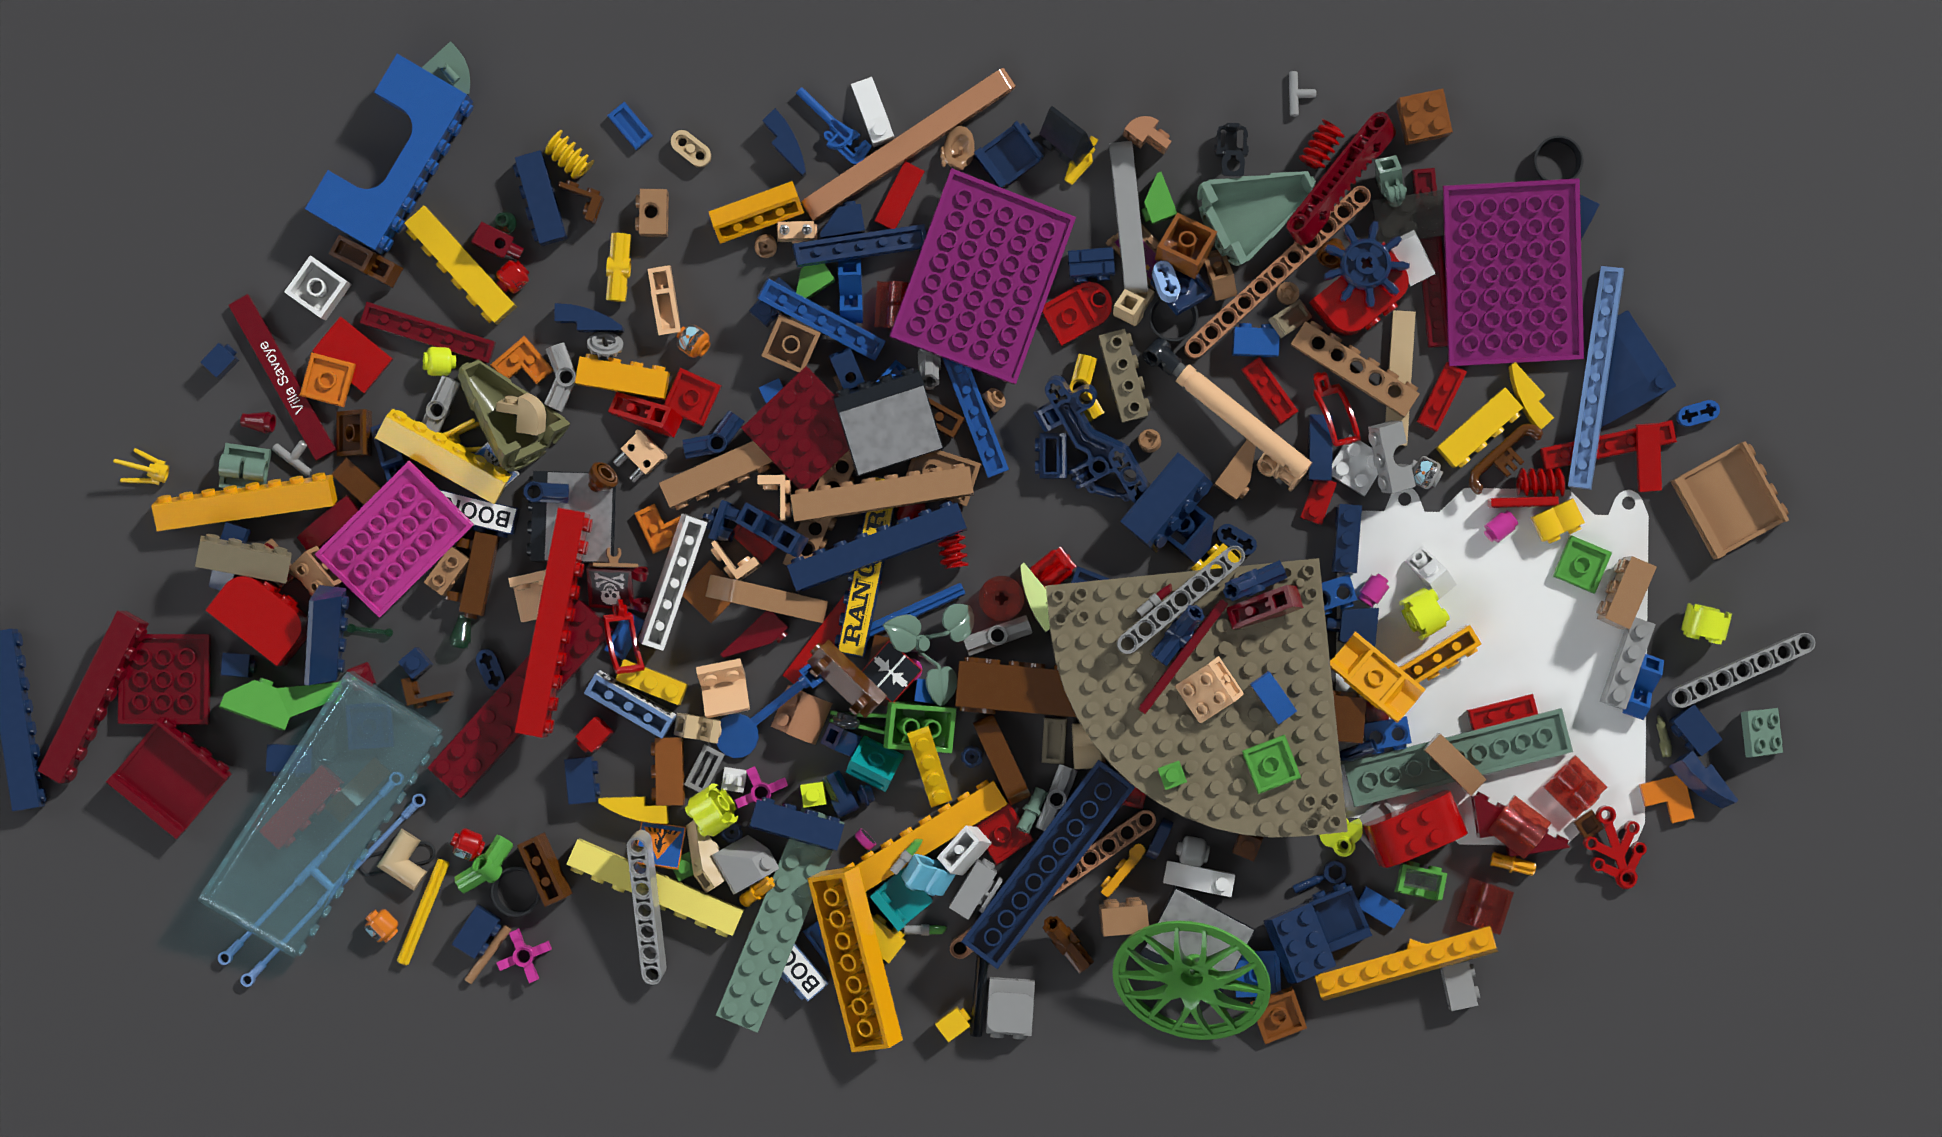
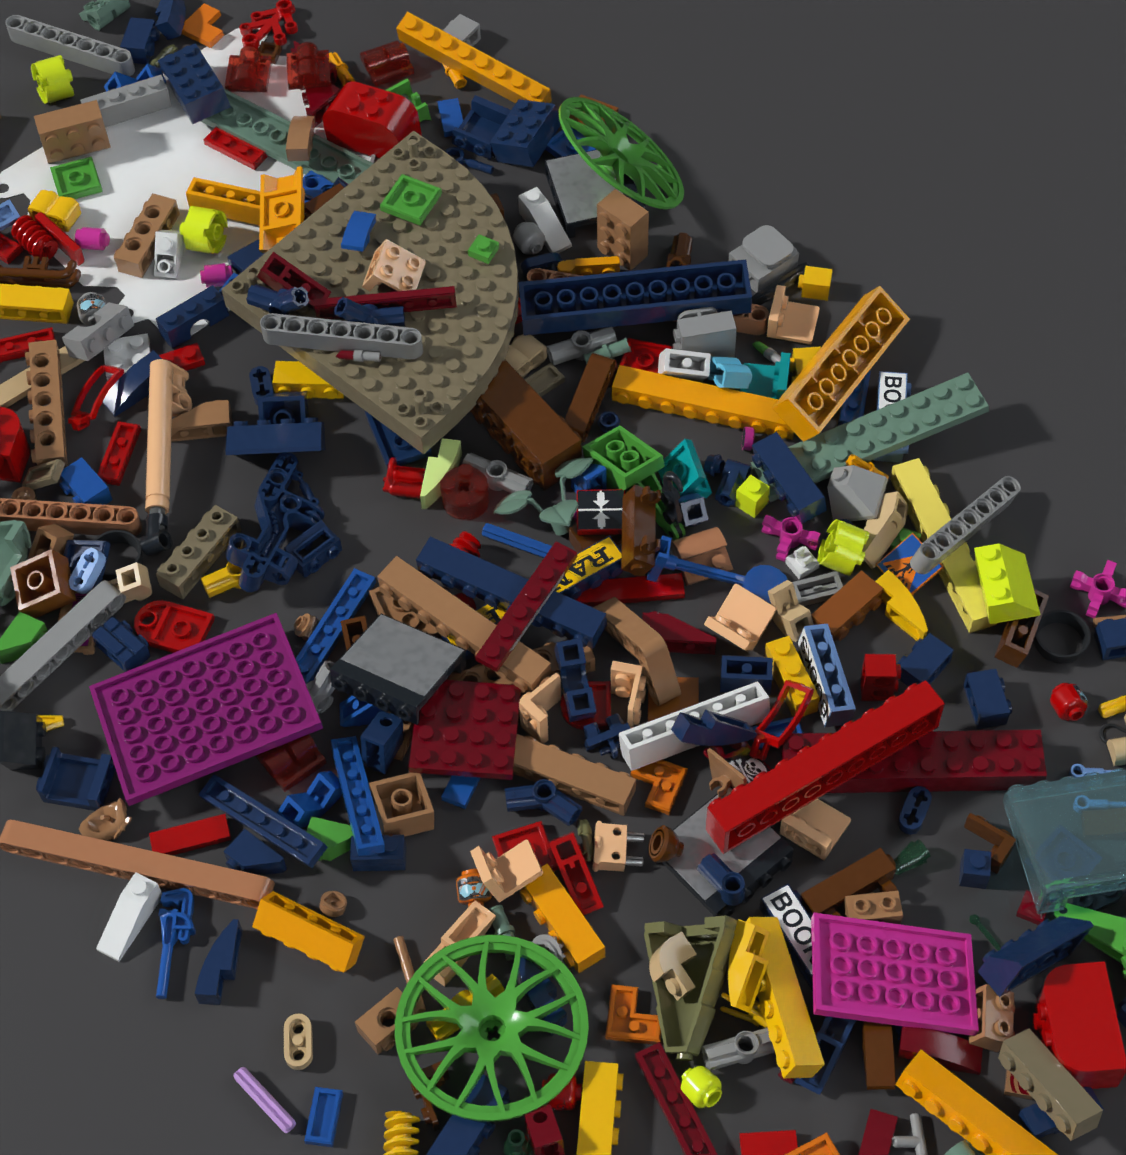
camera: 130 degrees left, 30 degrees down
(354, 433) = (839, 1103): reddish brown slope -> none
(474, 448) = (746, 964): none -> yellow slope
(486, 866) = (1083, 673): bright green piece -> none
(518, 794) = (987, 698): none -> dark blue brick
(561, 363) = (600, 978): light grey piece -> none
(572, 261) = (486, 1016): none -> bright green wheel
(574, 882) = (1005, 583): none -> neon yellow slope
(647, 334) = (502, 926): none -> sand green pin
(650, 582) = (711, 729): none -> dark blue slope
(669, 447) = (585, 831): none -> olive piece
(673, 99) = (264, 1100): none -> lavender axle
(679, 367) = (509, 871): none -> light nougat bracket
(679, 652) = (742, 671): none -> dark blue brick
(685, 258) = (407, 967): none -> medium nougat bar
(796, 231) = (296, 885): light nougat piece -> none
(849, 542) = (526, 606): none -> dark red plate
(906, 856) = (730, 393): light grey piece -> none
(929, 766) = (646, 428): yellow plate -> none
(936, 974) = (791, 320): none -> light nougat bracket
(1149, 440) = (236, 496): medium nougat tile -> none
(1443, 543) = (139, 244): none -> medium nougat brick
(1593, 728) = (194, 83): none -> dark blue brick

